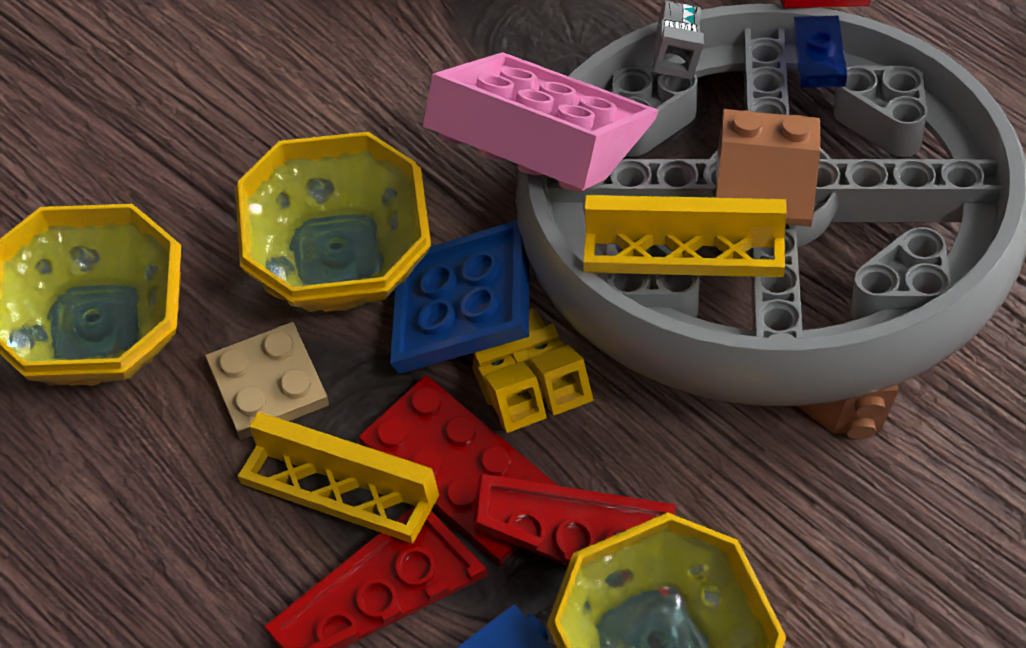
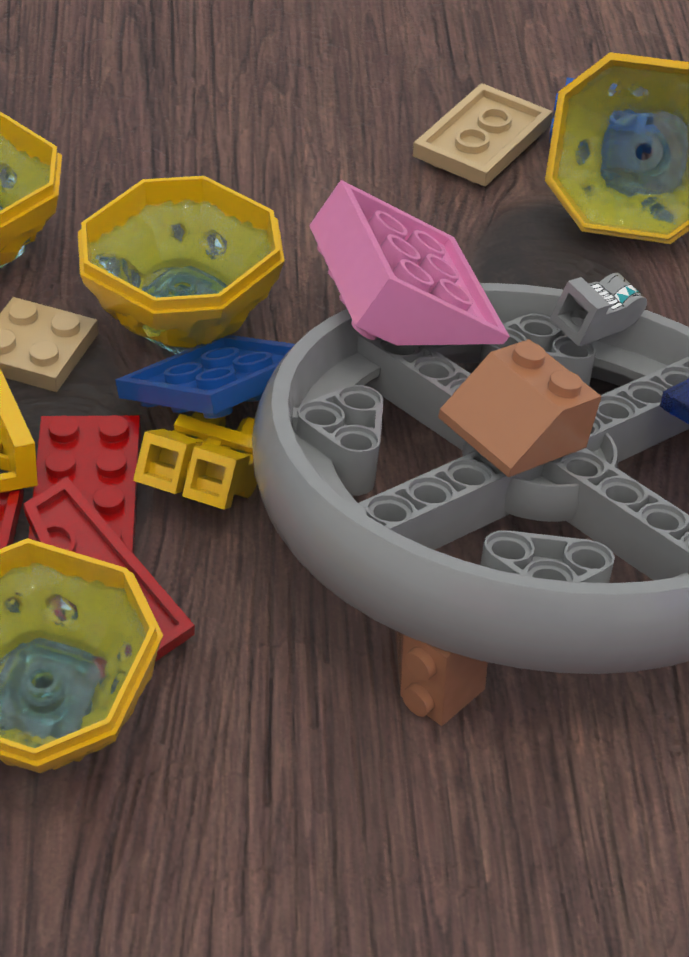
camera: 45 degrees right, 15 degrees down
(684, 227) = (395, 397): yellow fence -> none

